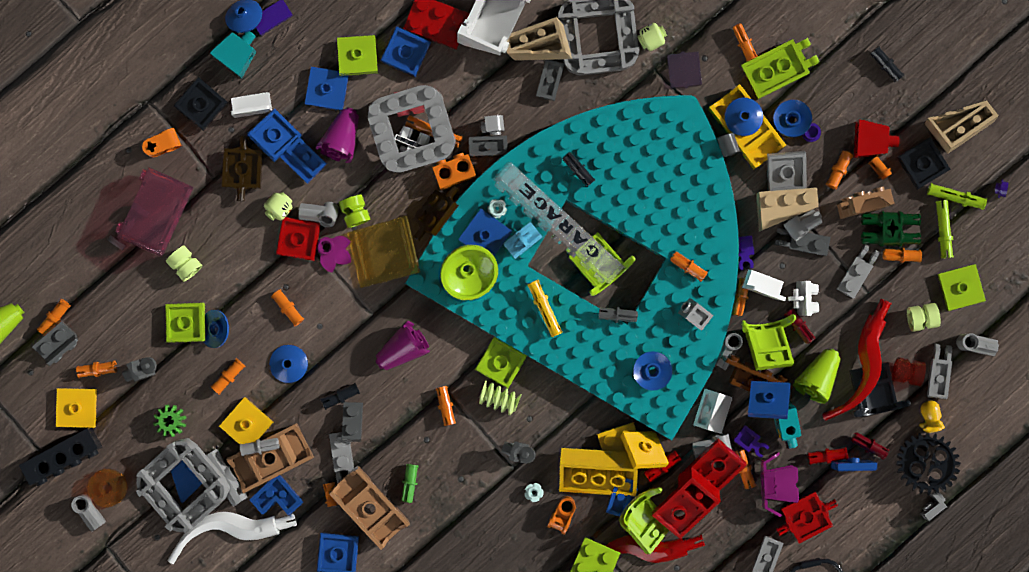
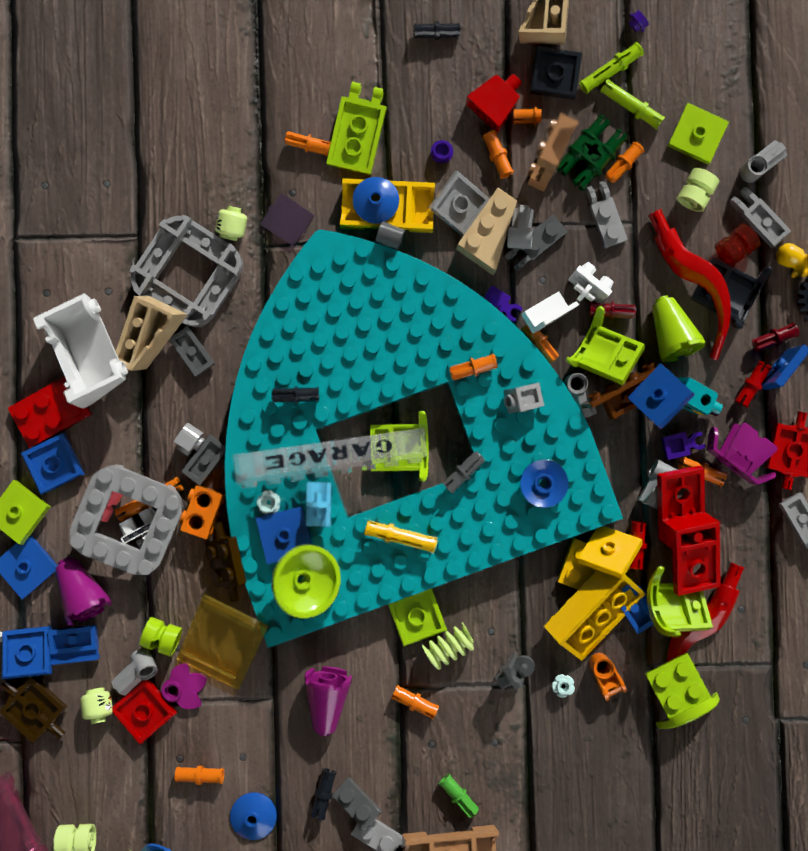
camera: 55 degrees left, 0 degrees up
(712, 411) = (624, 456): white panel -> none
(794, 109) = (407, 149): blue dish -> none

